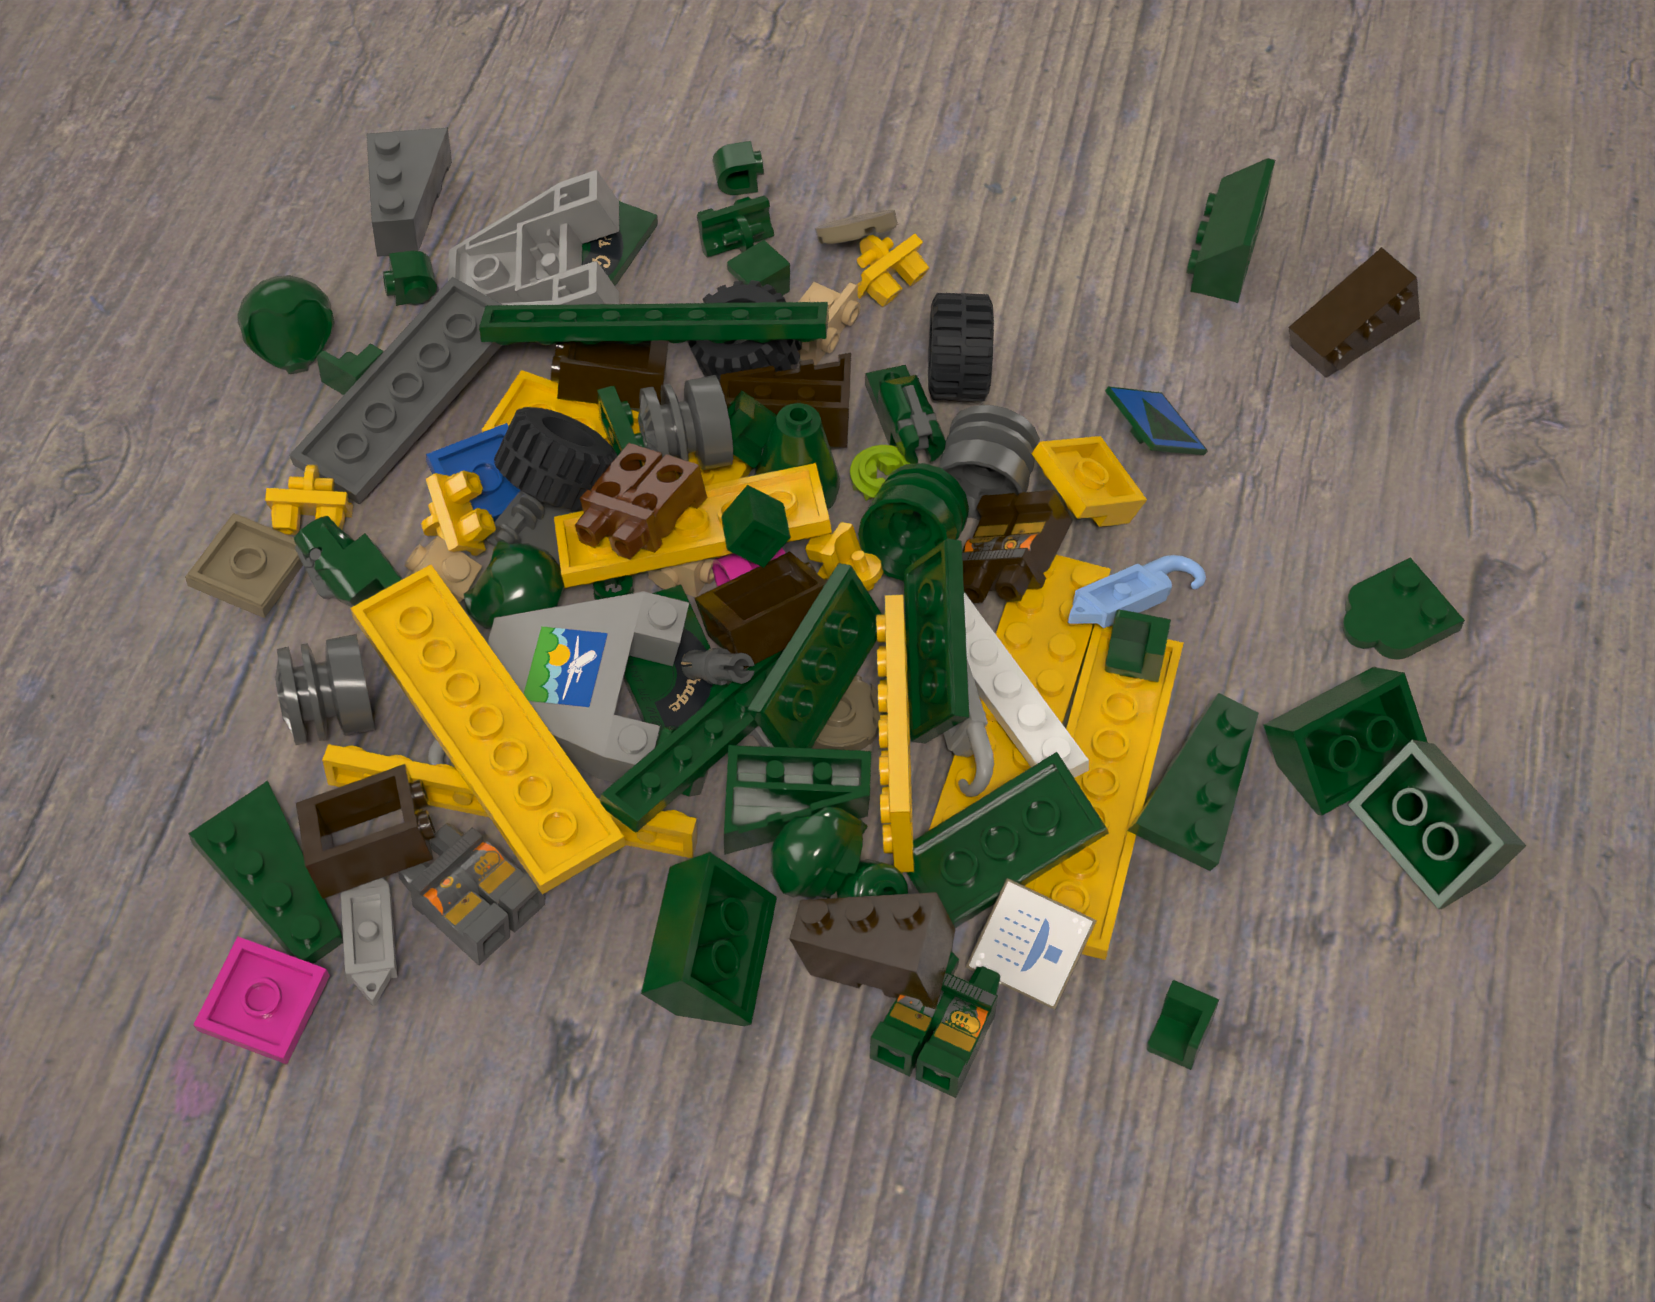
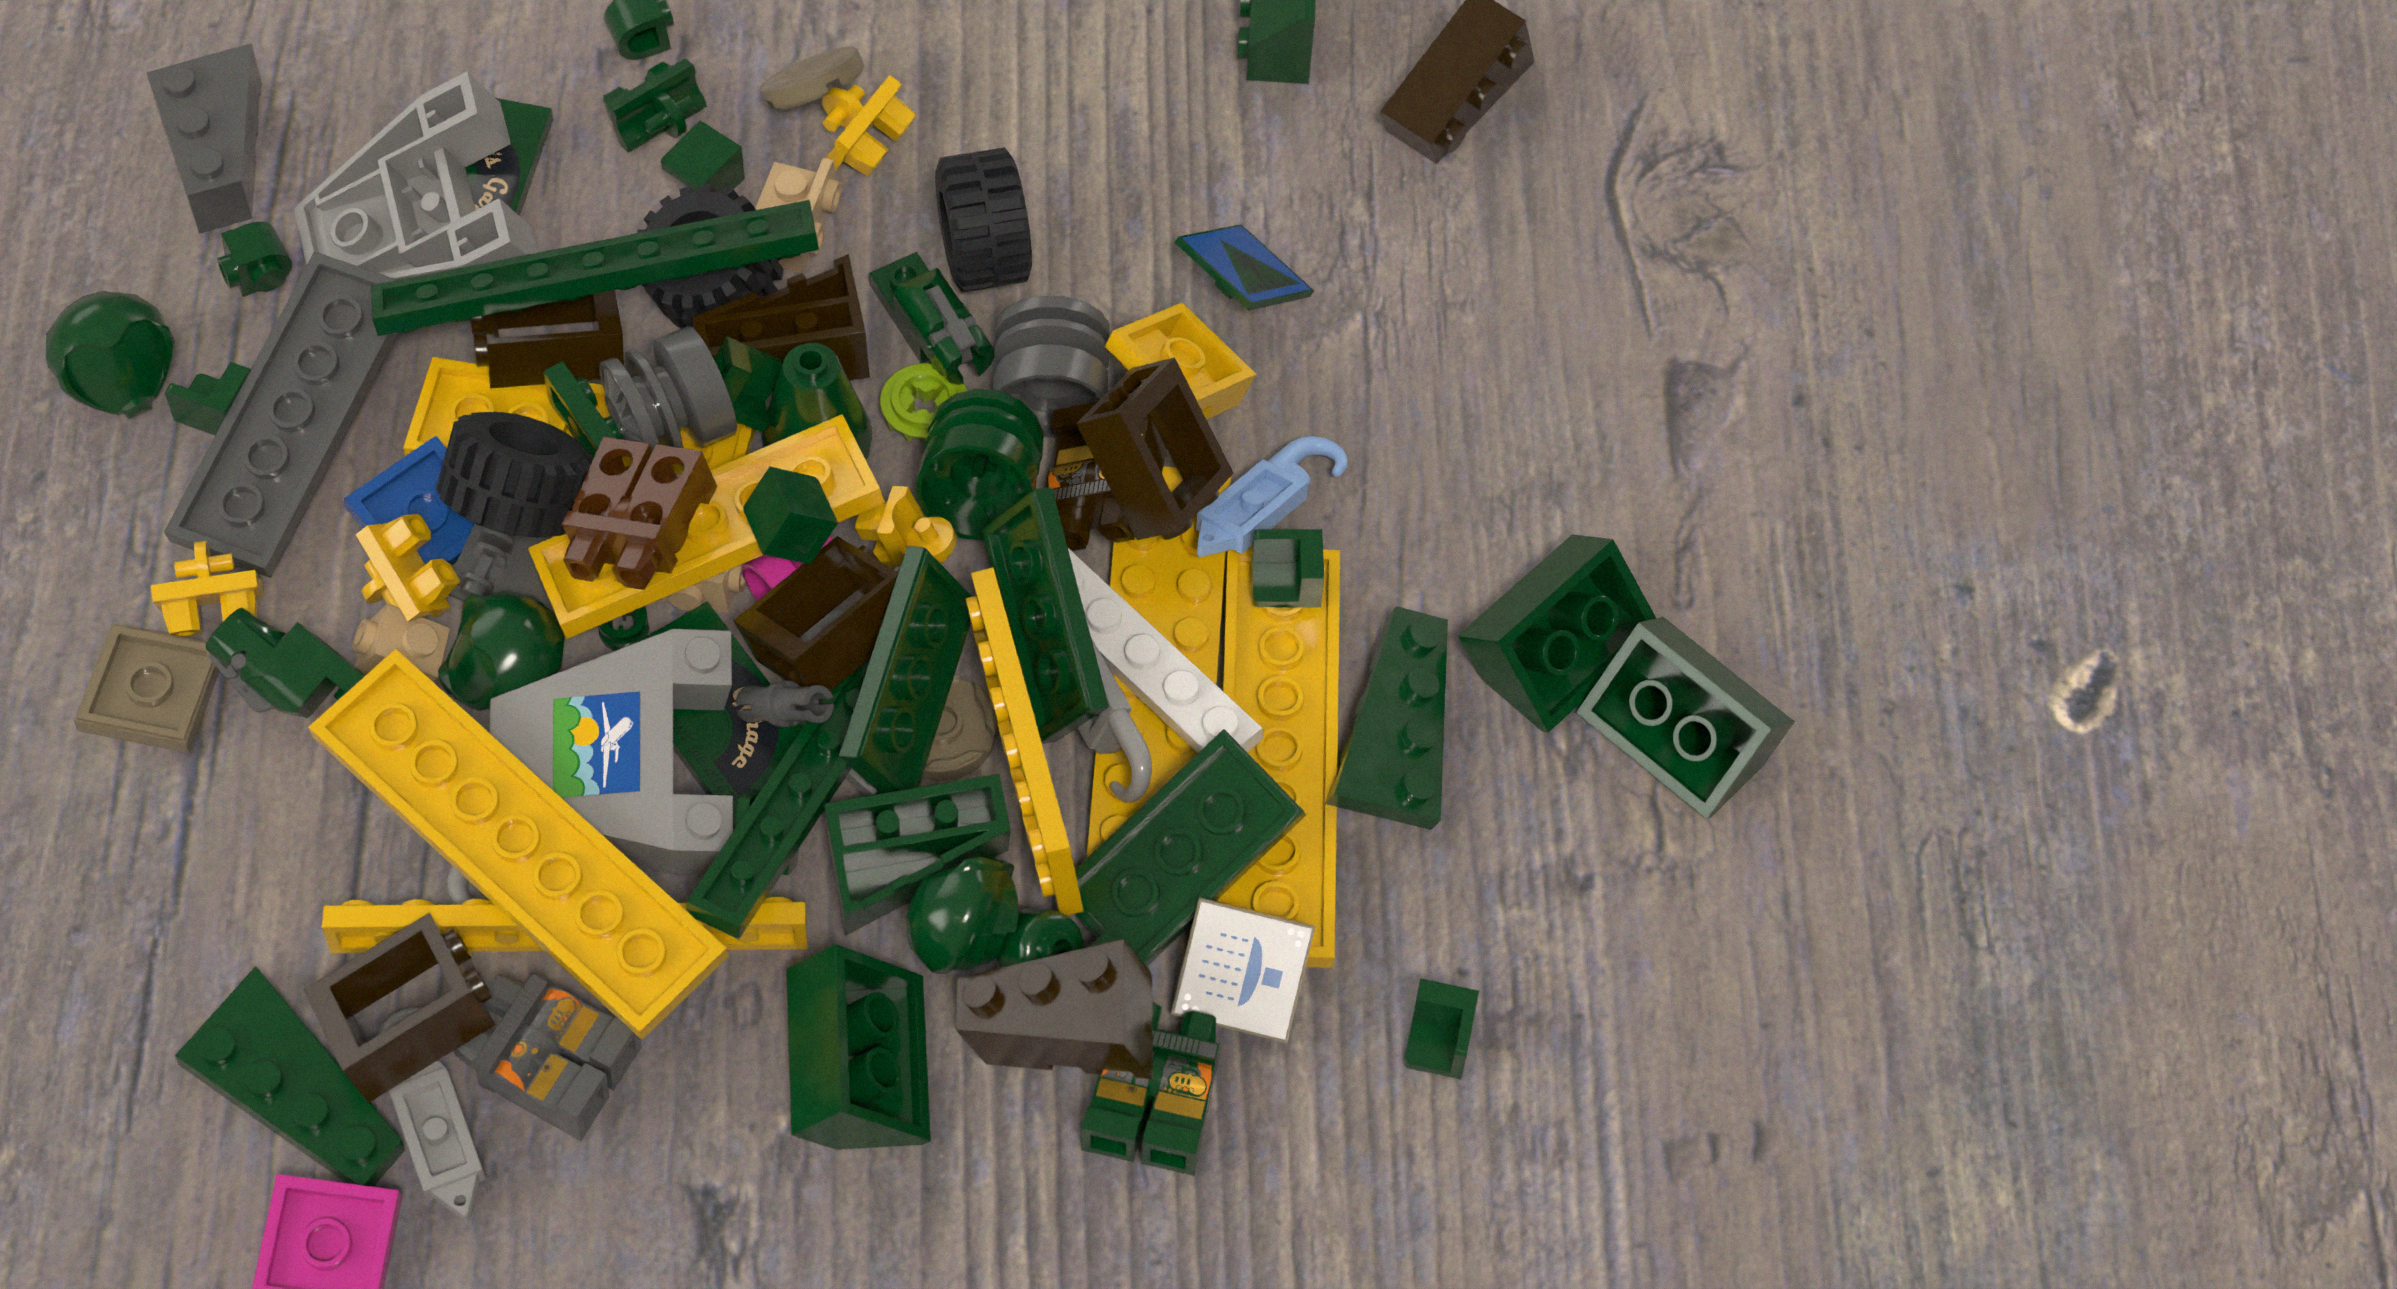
camera: 15 degrees left, 5 degrees up
(324, 689) = (300, 835): dark grey wheel -> none
(1028, 539) = (1128, 464): none -> dark brown window
(1398, 612) = (1586, 455): dark green plate -> none

